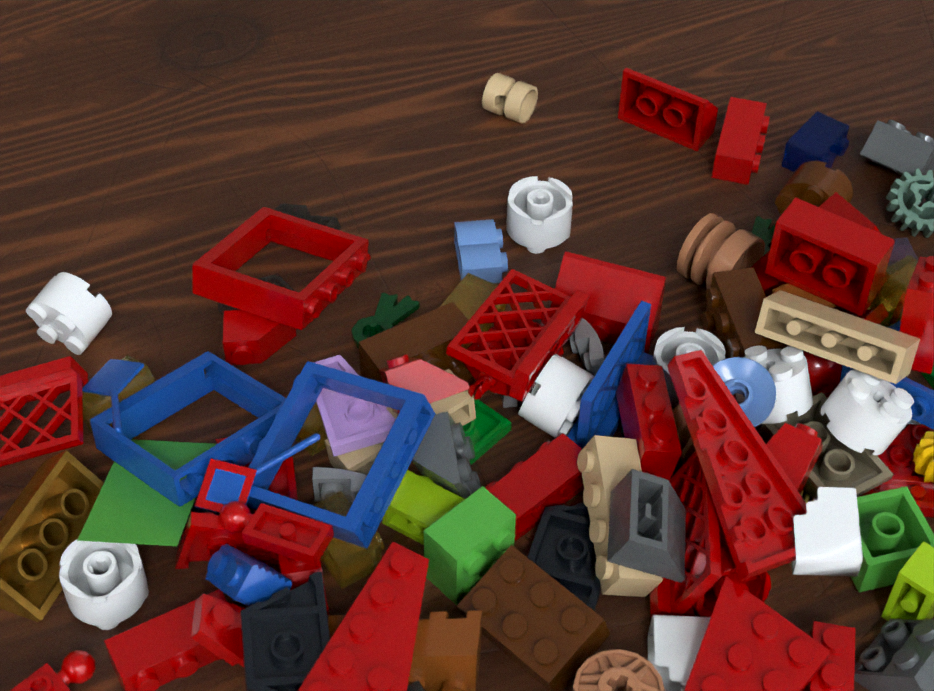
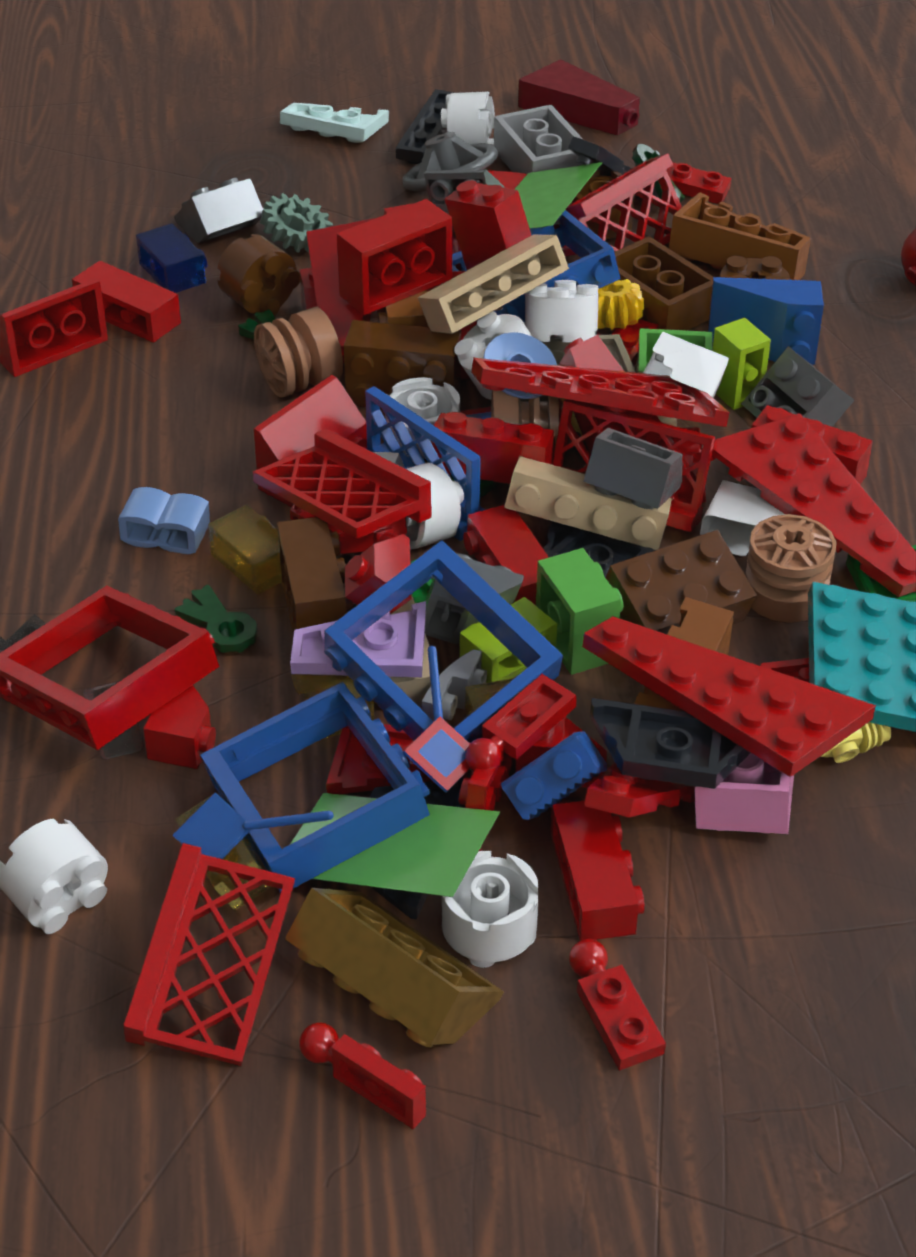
camera: 70 degrees left, 5 degrees down
(539, 213) = (144, 454): white brick -> none

